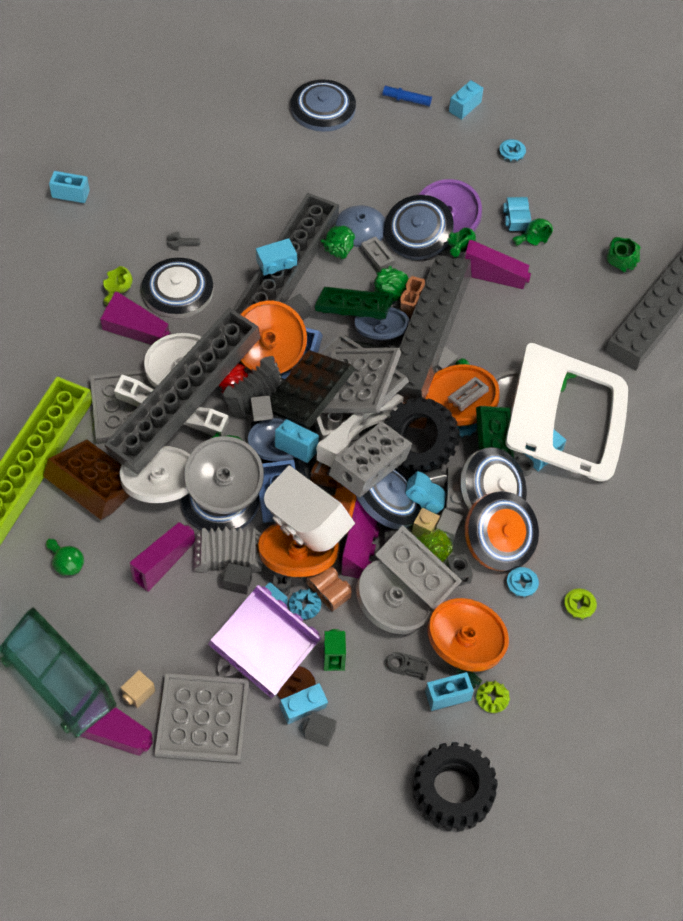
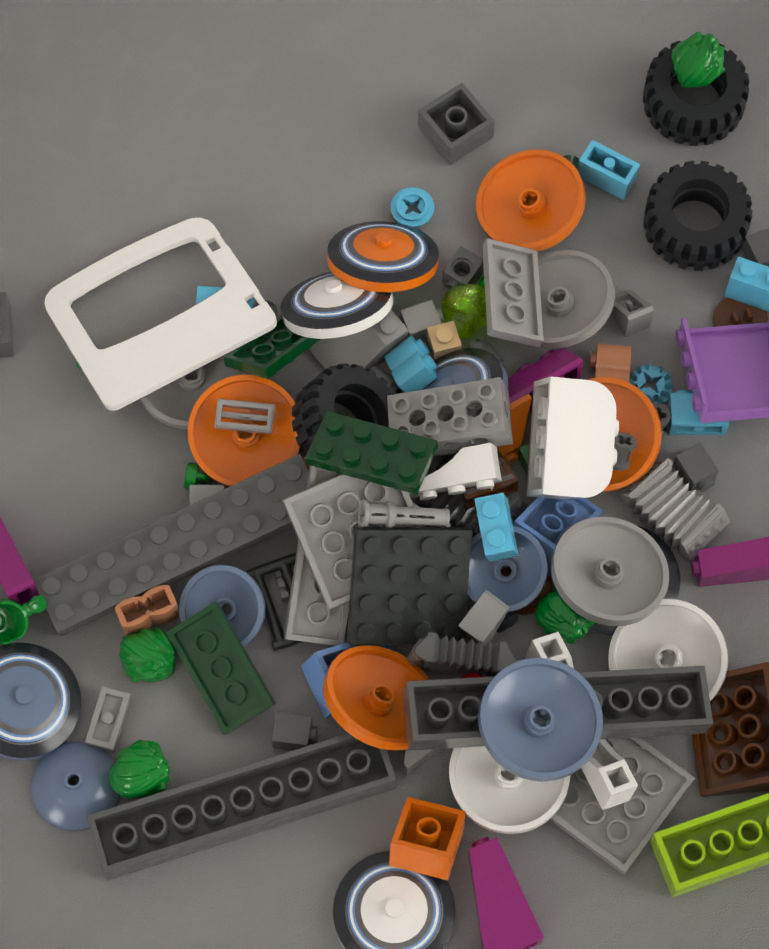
camera: 130 degrees left, 10 degrees up
(180, 356) = (540, 719): none -> sand blue dish
(190, 311) = (427, 838): none -> orange brick
(276, 256) = (256, 797): medium azure brick -> none
(282, 543) = (624, 444): none -> dark grey bush
(334, 650) = (678, 299): green brick -> none
(346, 389) = (389, 511): none -> light grey pin
(356, 628) = (632, 312): none -> light grey slope
(375, 684) = (701, 184): none -> black tyre
(383, 398) = (371, 452): none -> dark green plate
(411, 665) = (611, 234): dark grey piece -> none
(466, 781) = (698, 60): none -> green hair
(485, 701) = (578, 139): lime gear -> none
(553, 640) = (456, 123): none -> dark grey brick
(588, 601) = (389, 131): lime gear -> none

